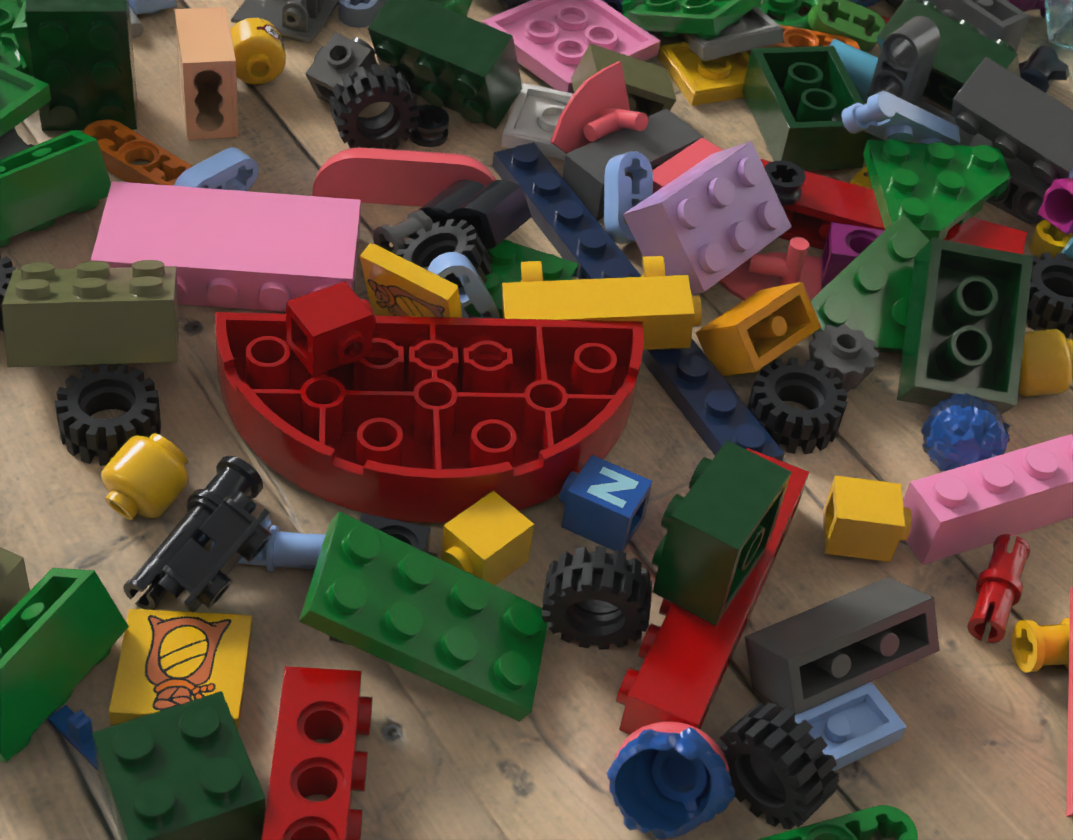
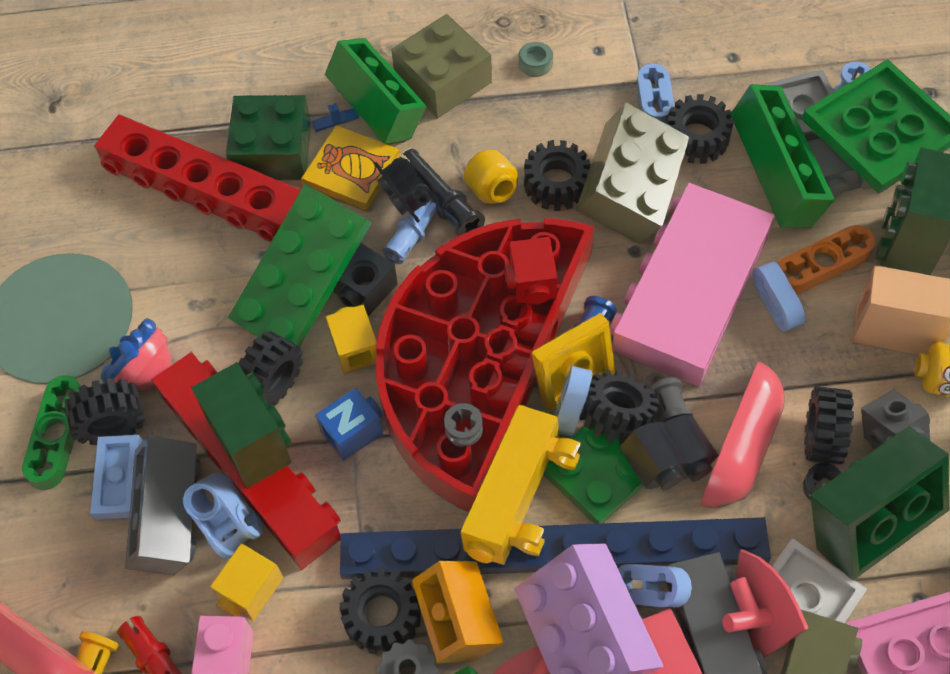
camera: 125 degrees right, 15 degrees up
(567, 357) = (458, 412): none -> dark grey bush
(805, 571) = (224, 516): none -> light blue piece

